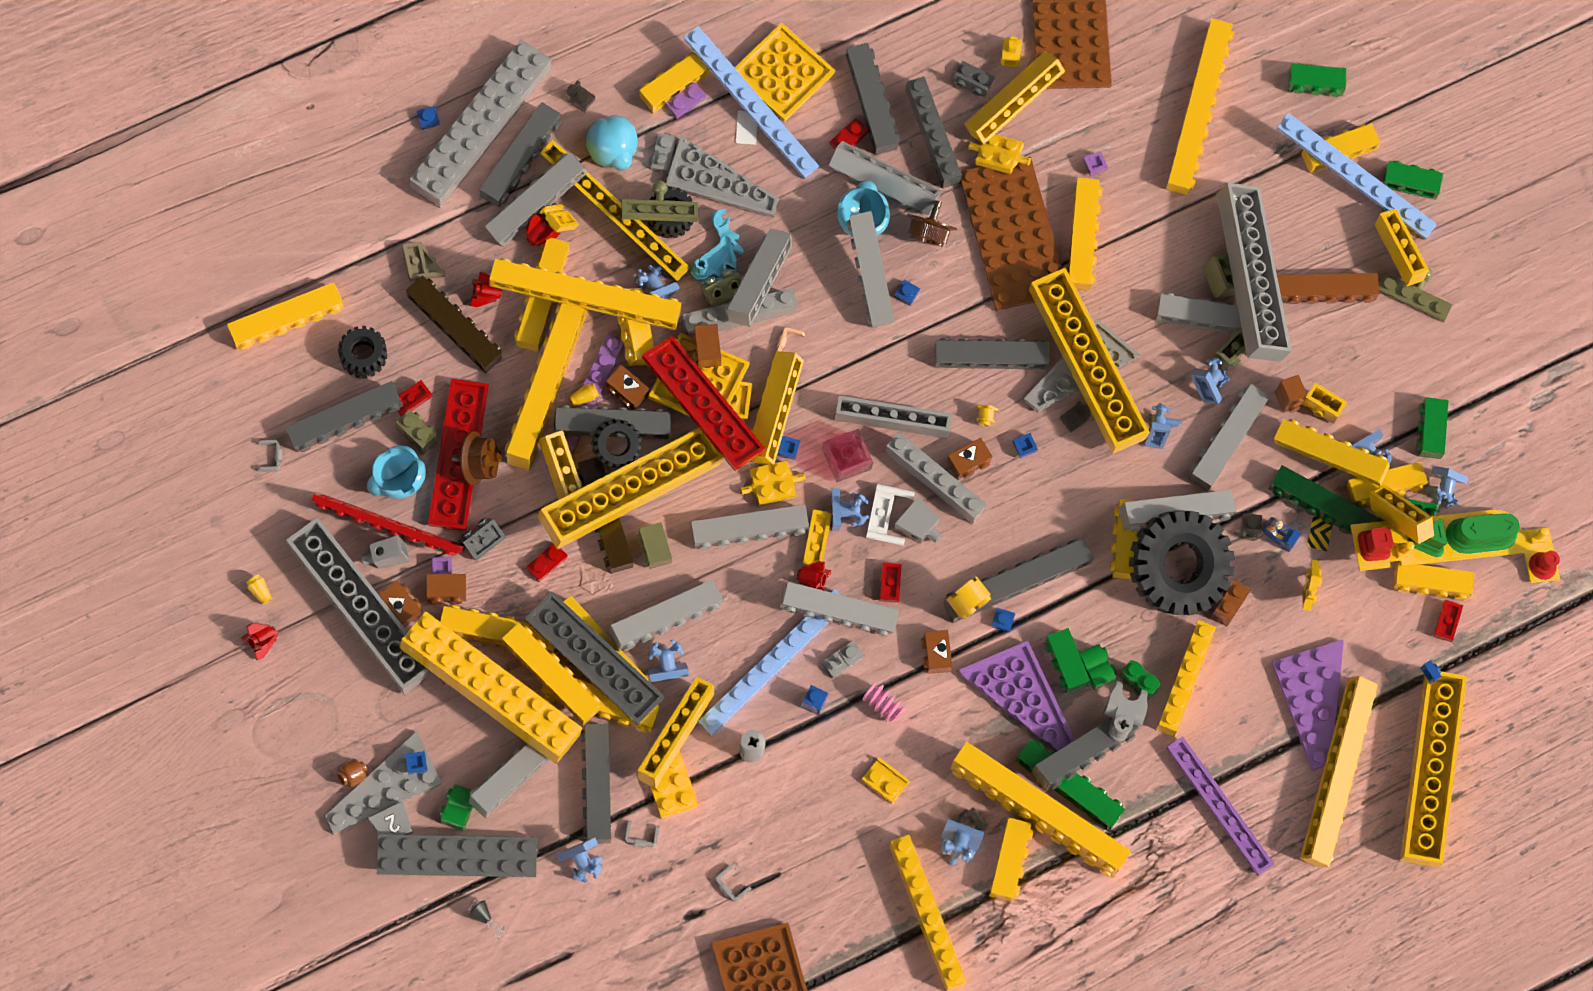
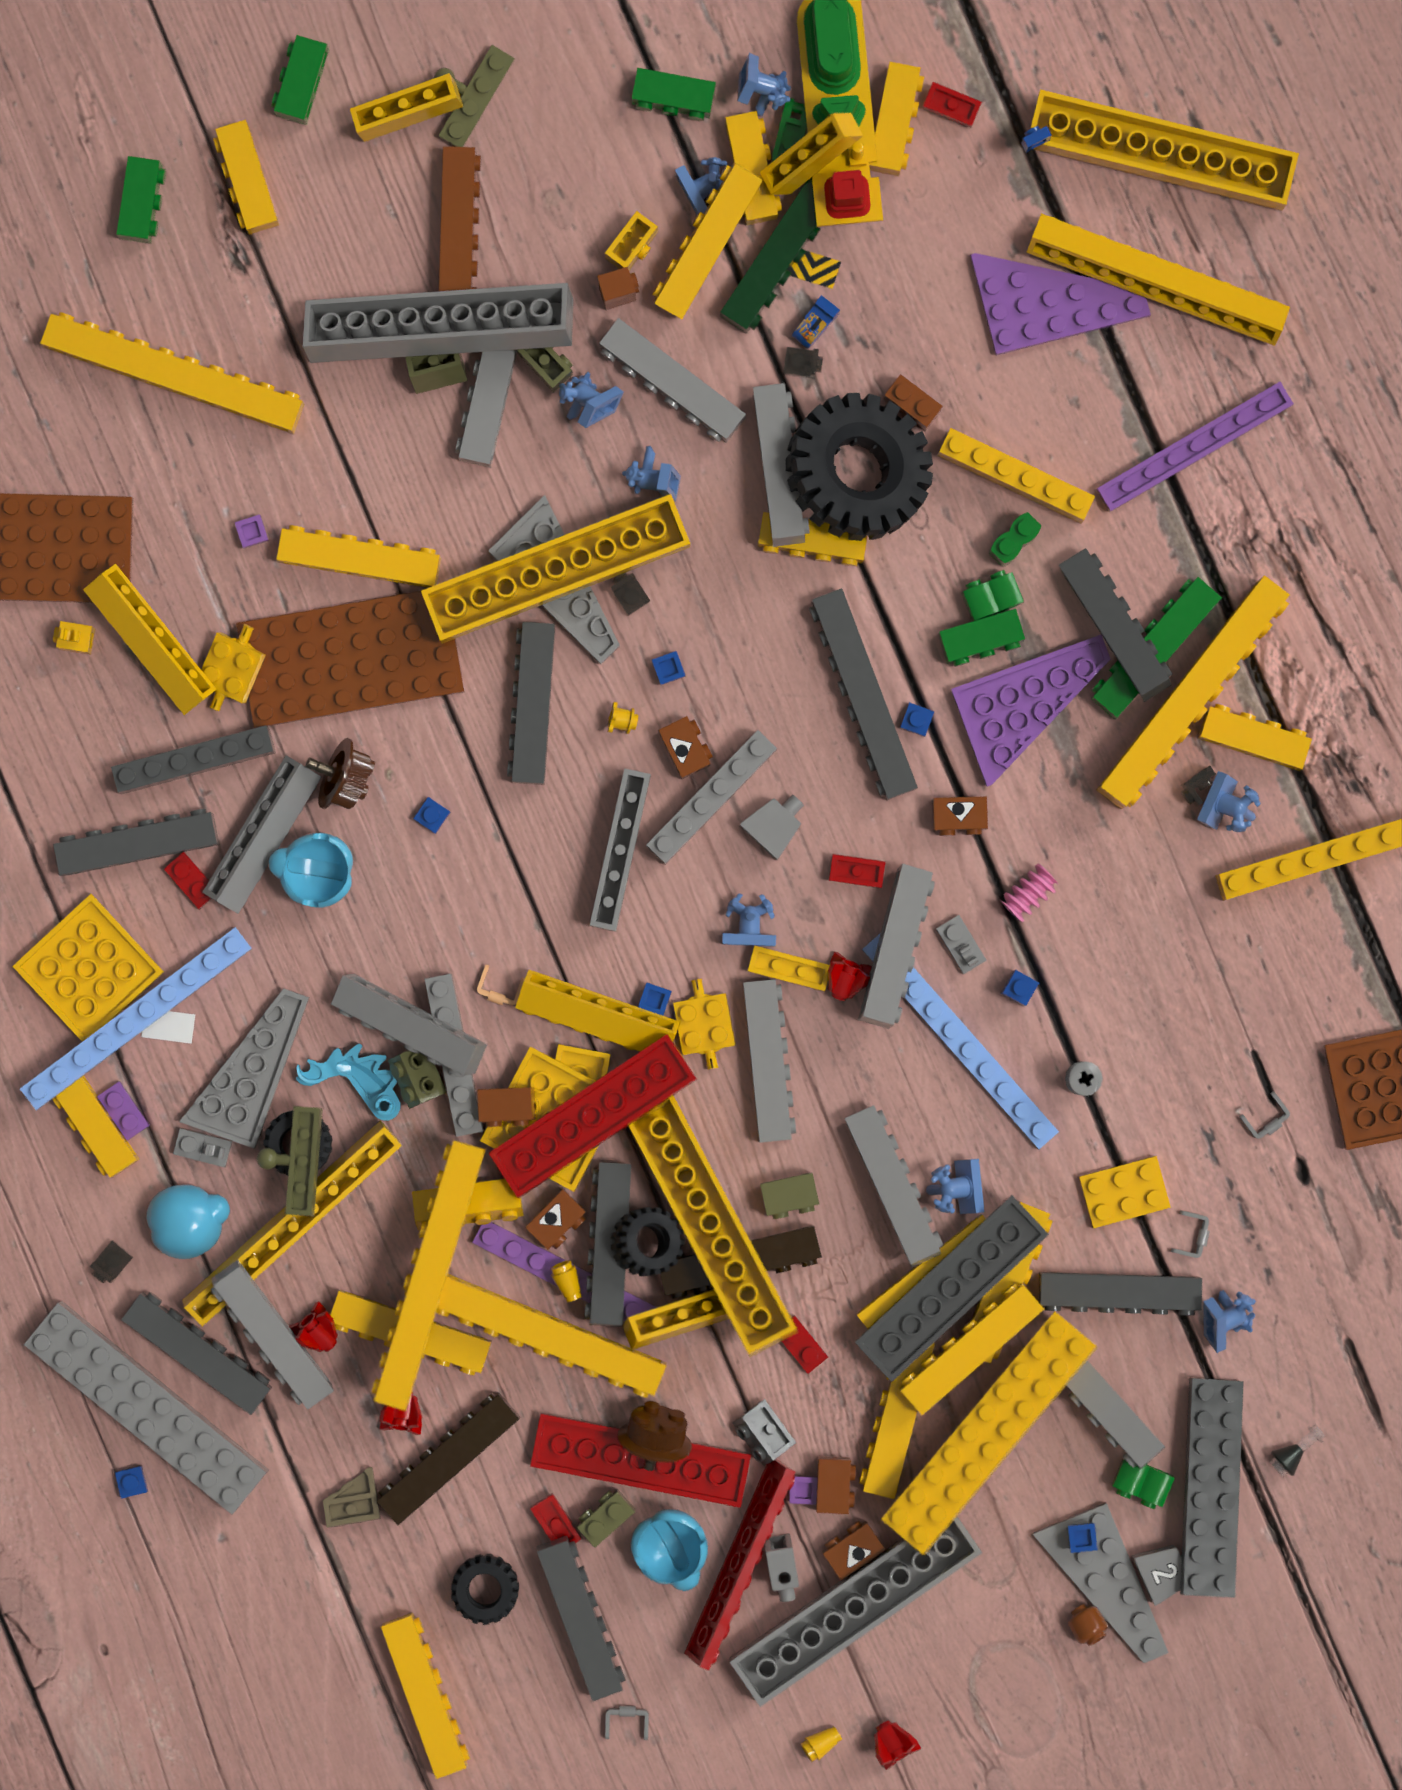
camera: 80 degrees left, 15 degrees up
(558, 218) = (300, 1302): yellow plate -> none
(654, 284) = (408, 1173): medium blue piece -> none
(676, 732) = (1060, 1181): yellow brick -> none
(847, 455) = (673, 918): clear pink brick -> none
(871, 268) = (404, 865): light grey brick -> none
(881, 513) = (758, 876): white plate -> none
(885, 780) = (1134, 899): yellow plate -> none
(969, 597) = (897, 766): yellow brick -> none
(973, 79) = (112, 695): dark grey bracket -> none
(1124, 712) = (1068, 565): light grey piece -> none
(1312, 582) = (899, 289): yellow plate -> none
(1355, 175) = (294, 160): light blue plate -> none

